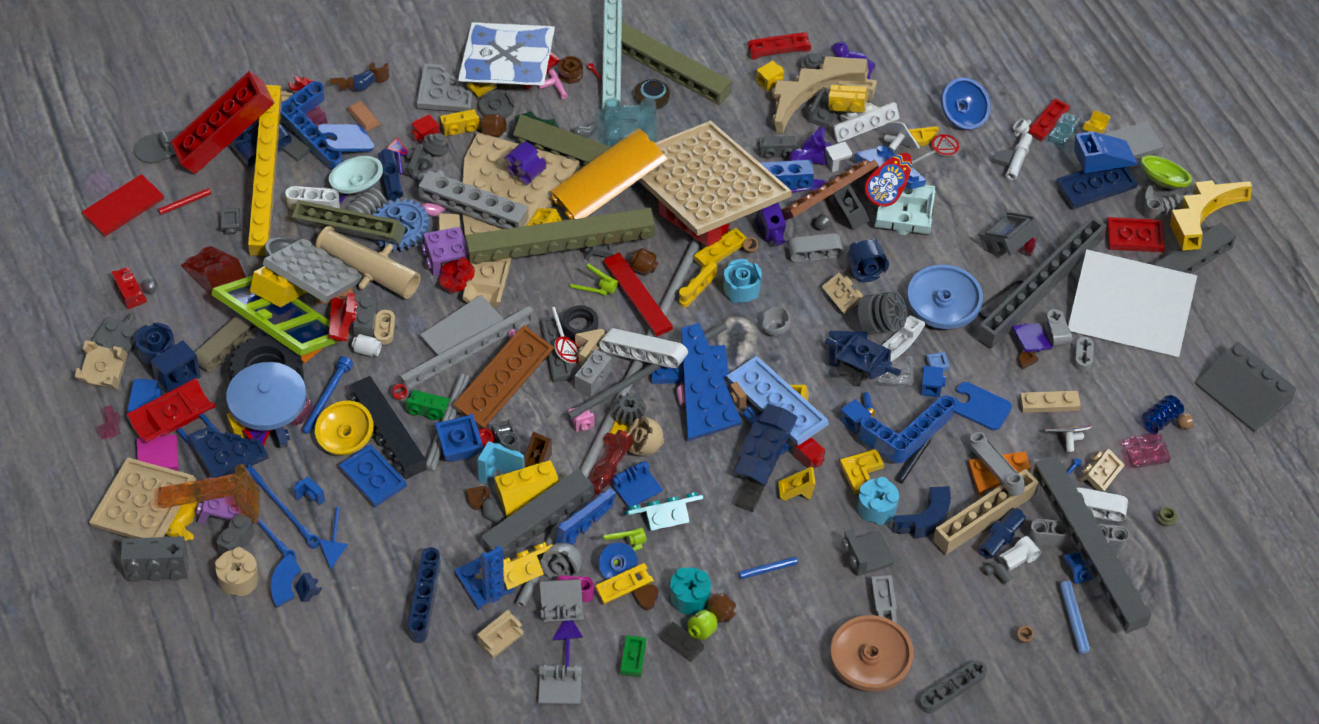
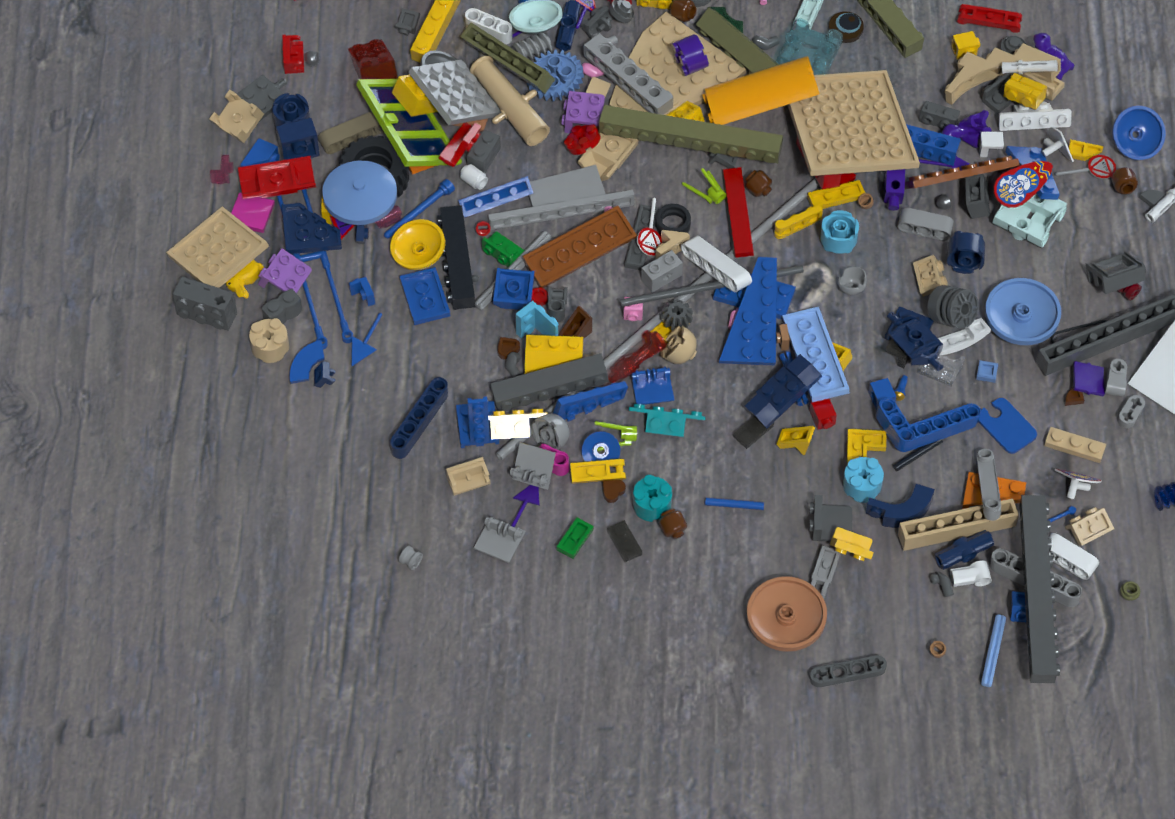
camera: 25 degrees right, 5 degrees up
(239, 485) = (301, 266): clear orange bracket -> none
(384, 328) = (496, 166): tan plate -> none
(398, 356) = (496, 196): none -> slope
(702, 625) = (648, 533): lime head -> none
(849, 72) = (1030, 66): none -> white pin
(896, 564) = (851, 542): none -> yellow bracket
(932, 381) = (971, 387): blue brick -> none
(973, 150) = (1124, 180): none -> reddish brown head
(1149, 454) = (1143, 527): clear pink plate -> none

